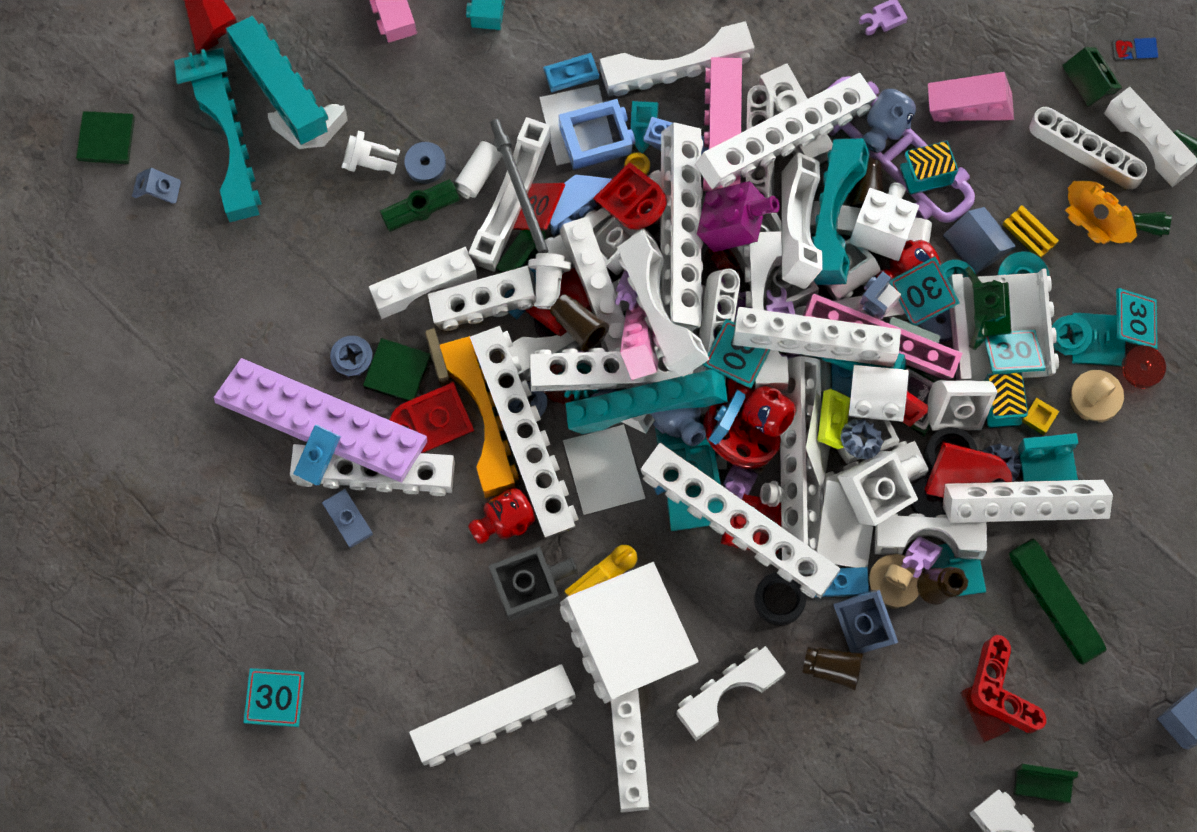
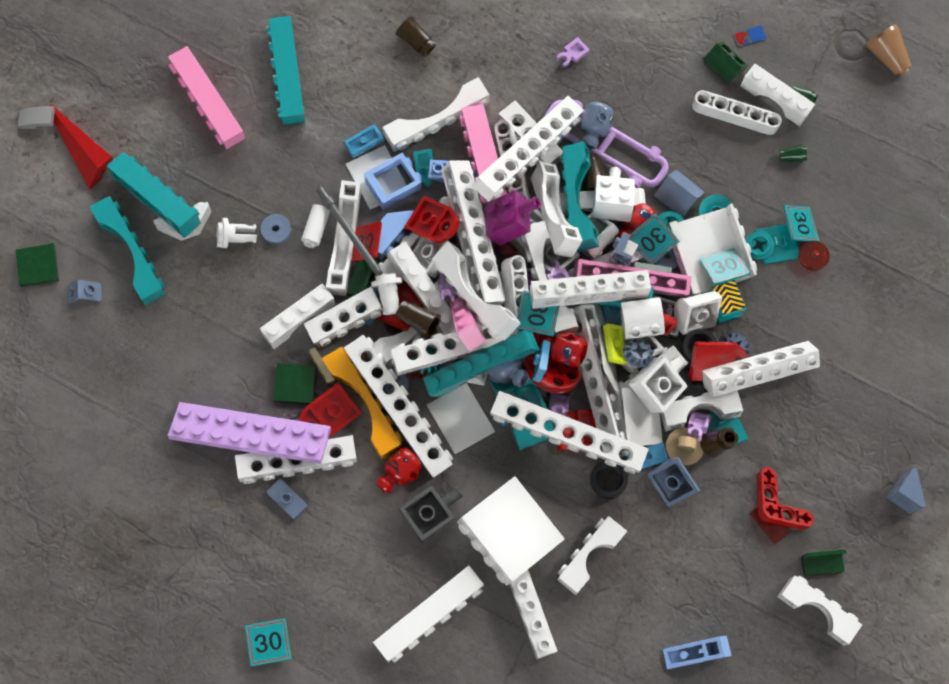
camera: 20 degrees left, 0 degrees up
(200, 65) = (94, 196): teal piece -> none
(317, 455) = (254, 459): dark azure plate -> none
(357, 346) = (250, 381): sand blue gear -> none
(405, 213) = (270, 268): dark green piece -> none
(619, 561) = (484, 488): yellow piece -> none
(640, 161) = (428, 192): yellow tile -> none
(771, 494) = (584, 407): white plate -> none
(786, 100) = (522, 127): white tile -> none
(833, 666) = (658, 517): dark brown plant -> none
(929, 168) = (633, 151): piece -> none
(971, 99) = (648, 96): bright pink wedge -> none
(990, 309) = (701, 239): dark green piece -> none
(1034, 223) = (726, 181): yellow tile -> none
(1040, 416) = (753, 307): yellow tile -> none
(1048, 458) = (767, 335): teal bracket -> none
(1057, 601) = (799, 433): dark green beam -> none
(1096, 396) = (787, 283): tan tile -> none
(1116, 227) = (770, 162): light orange piece -> none

